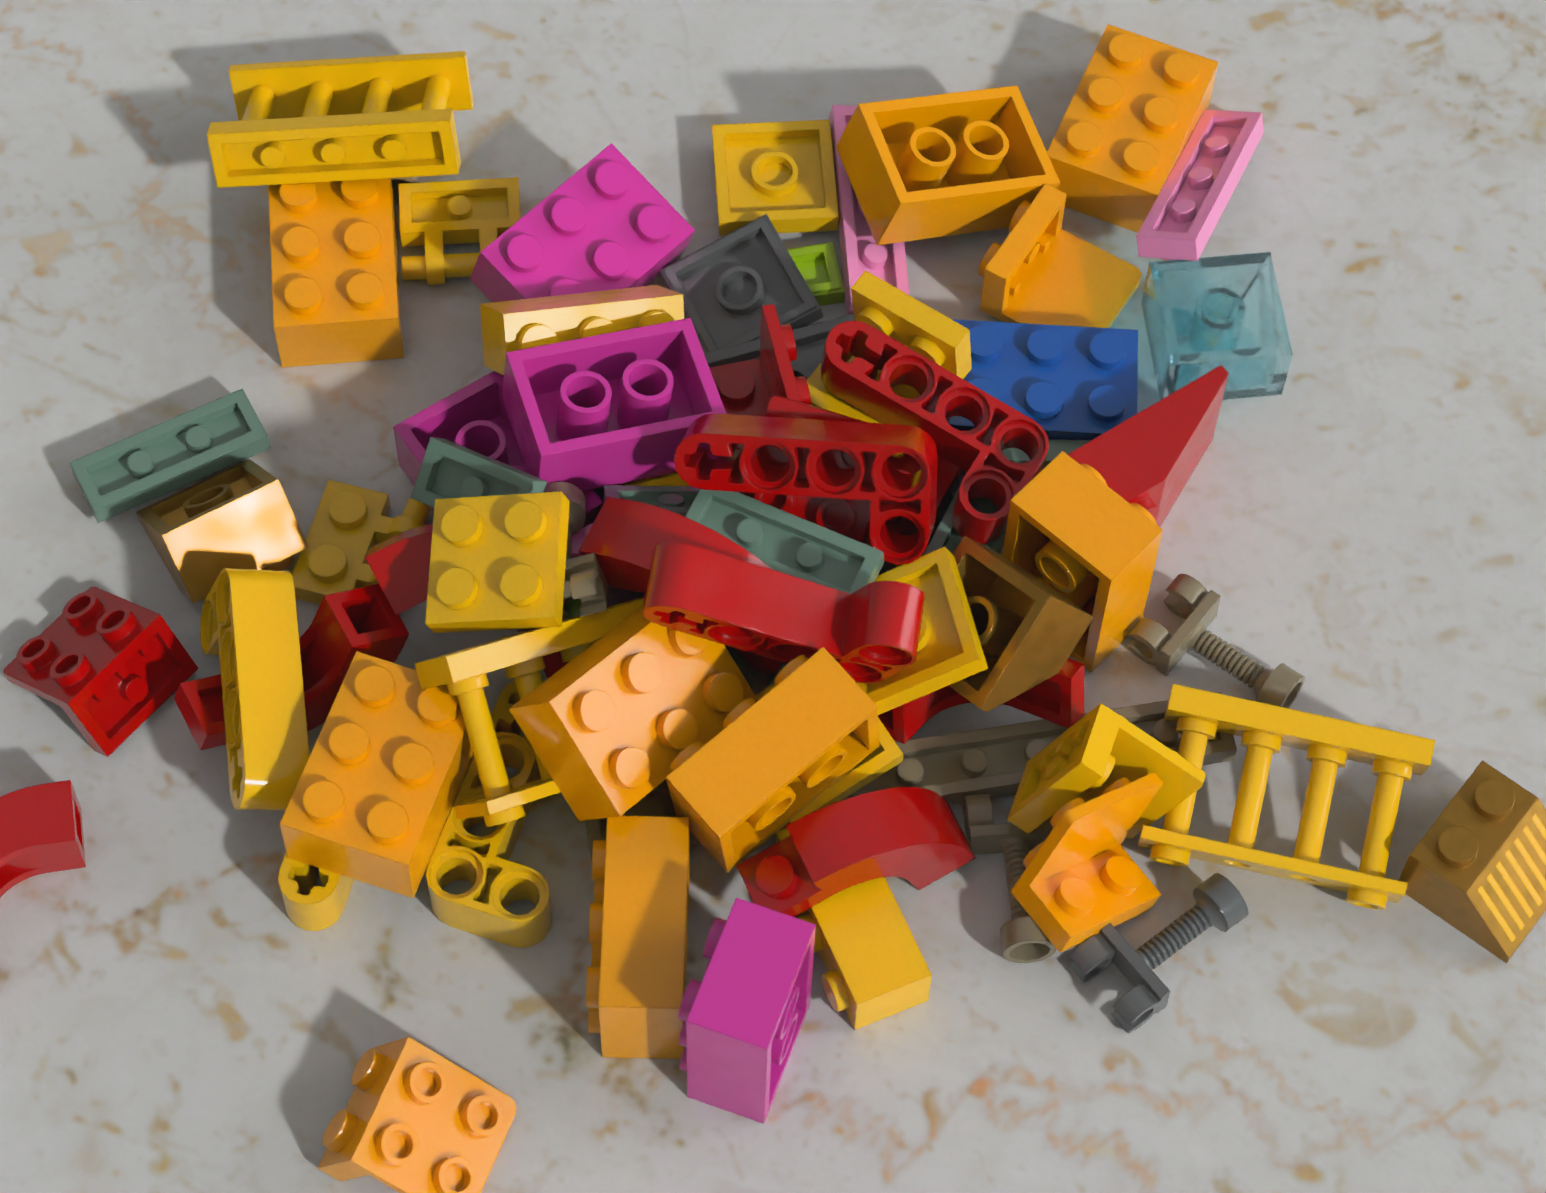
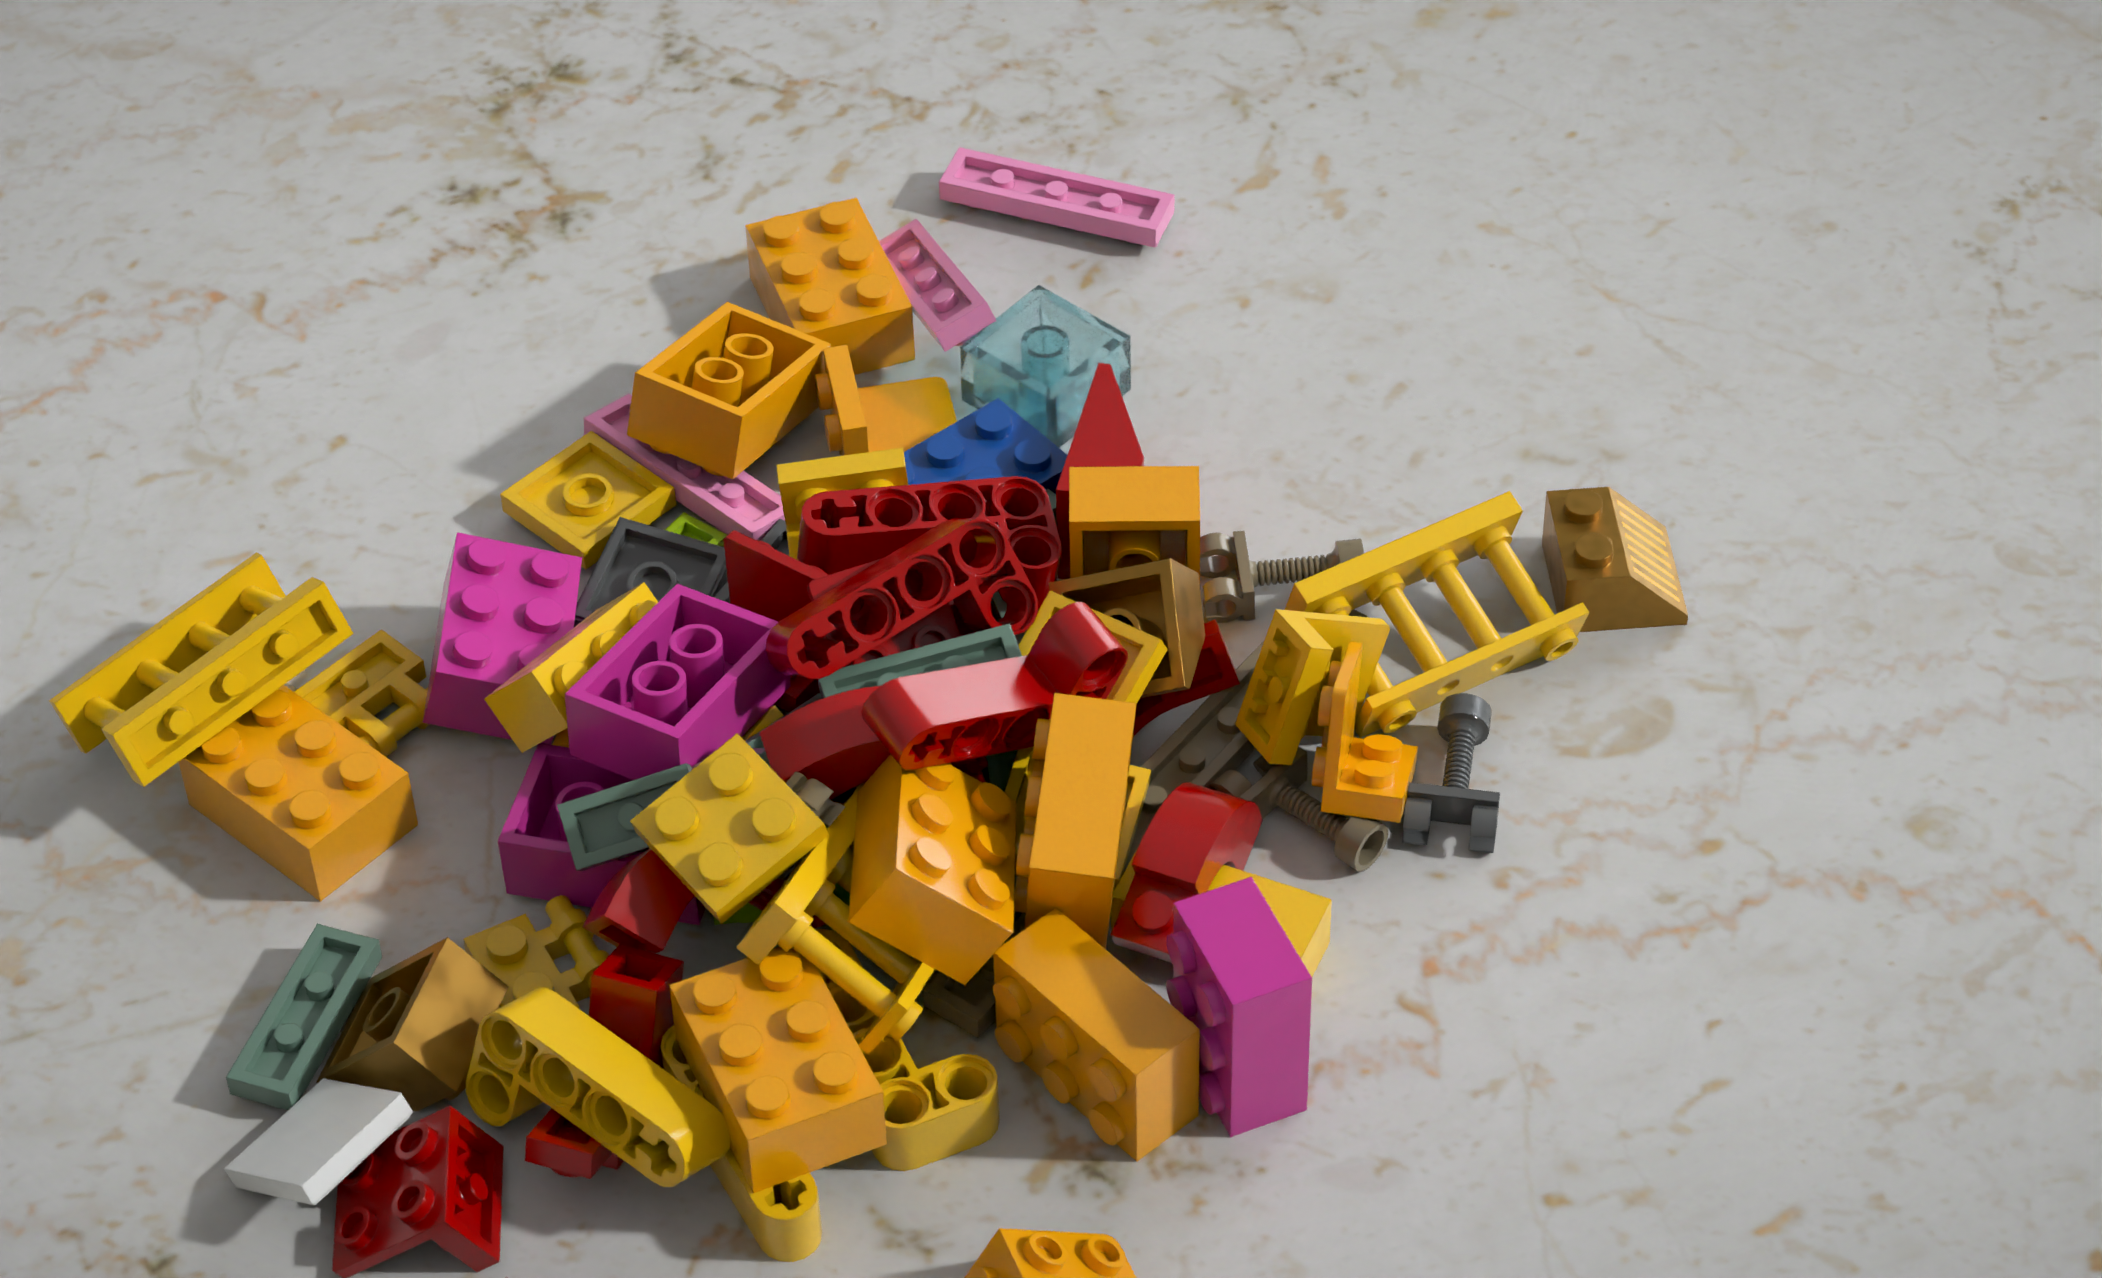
camera: 40 degrees left, 15 degrees down
(73, 565) = (319, 1141): none -> white tile
(1402, 174) = (1057, 197): none -> bright pink plate

